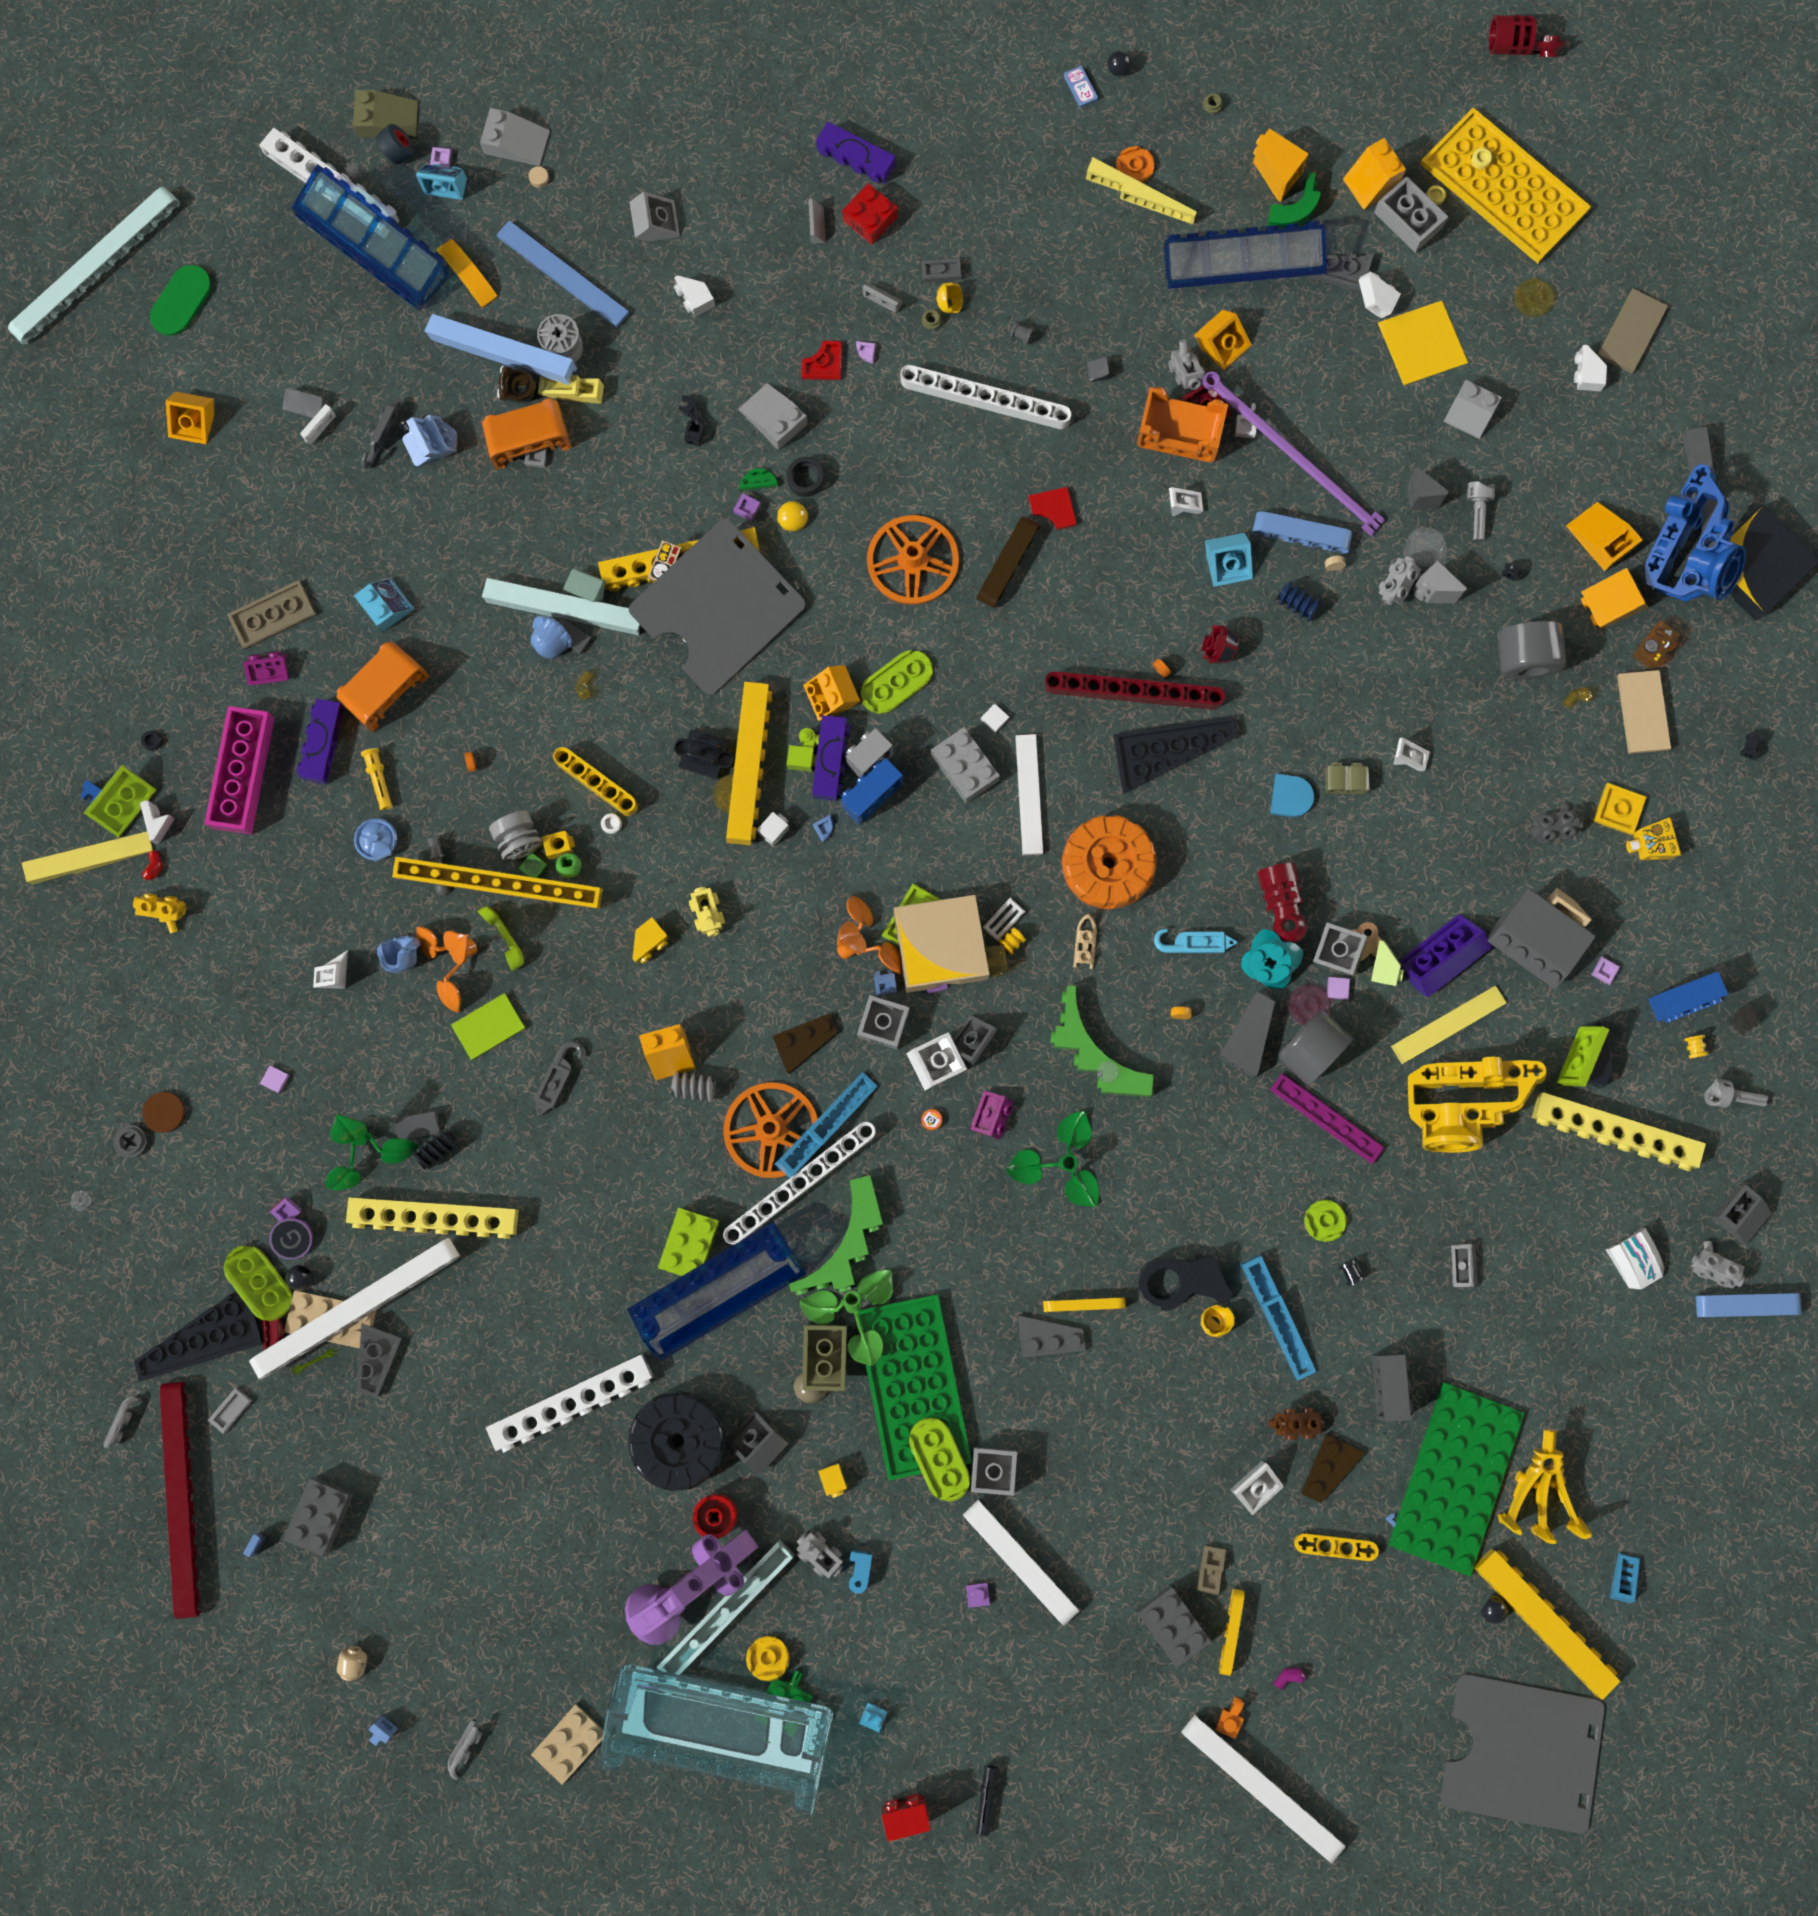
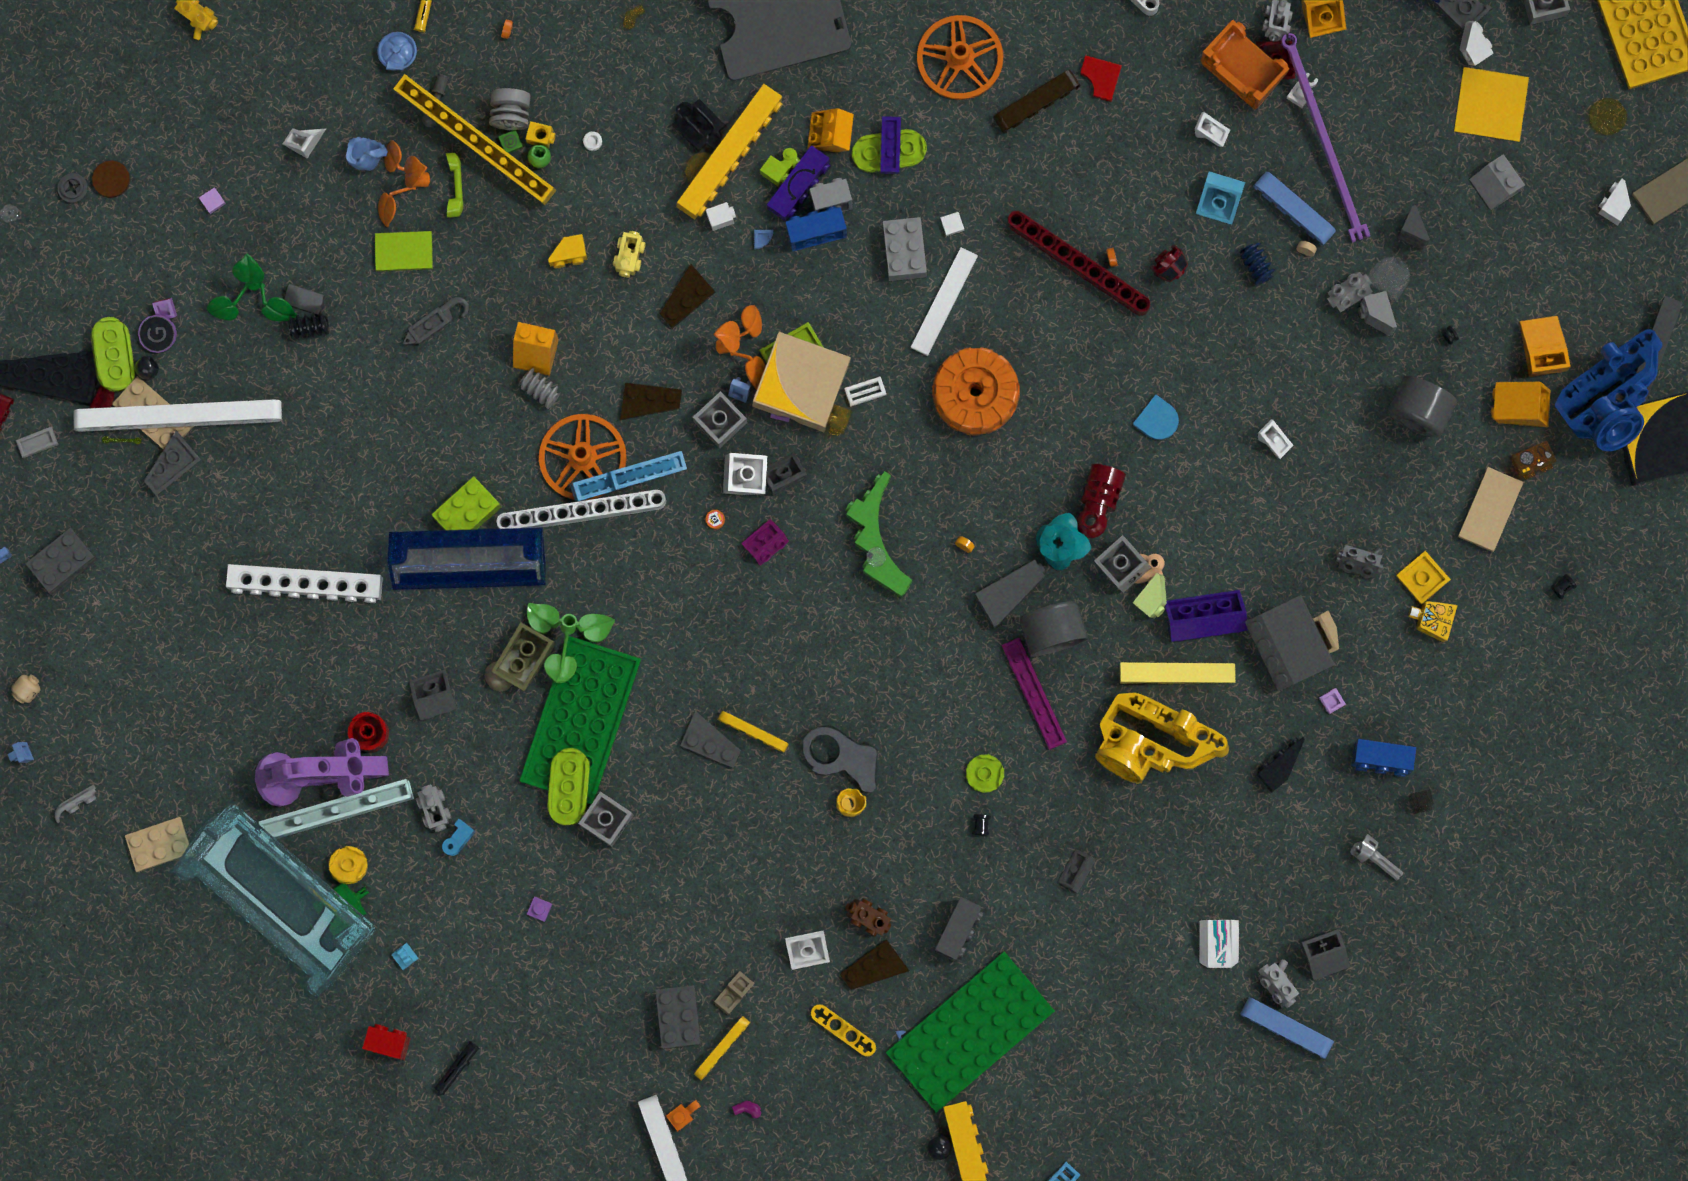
camera: 30 degrees right, 0 degrees up
(358, 1208) = (223, 338): light yellow brick -> none
(591, 773) = (598, 91): yellow beam -> none
(653, 1446) = (350, 653): black wheel -> none
(784, 922) = (686, 297): none -> dark brown wing
(833, 1480) = (476, 757): yellow brick -> none
(838, 1269) = (572, 595): bright green arch -> none
(896, 675) = (890, 145): none -> dark purple plate
(1012, 941) = (861, 412): yellow bush -> none
(1021, 1563) = (587, 902): white beam -> none
(1083, 1187) = (801, 640): green plant -> none
(1085, 937) = (923, 443): tan piece -> none
(1155, 751) = (1071, 323): black wing -> none
(1195, 942) = (1010, 495): medium azure plate -> none
(1278, 1316) = (902, 827): dark azure slope -> none
(1302, 1008) = (1073, 590): clear pink tile -> none
(1338, 988) = (1104, 595): lavender tile -> none
(1347, 779) = (1211, 430): olive brick -> none
(1480, 495) = (1460, 258): light grey piece -> none
(1542, 1484) = (1013, 1108): yellow piece -> none
(1577, 694) = (1444, 465): clear yellow arm -> none
(1582, 1056) = (1269, 756): lime tile -> none
(1691, 1149) = (1315, 878): light yellow brick -> none
(1696, 1046) = (1369, 801): yellow bush -> none

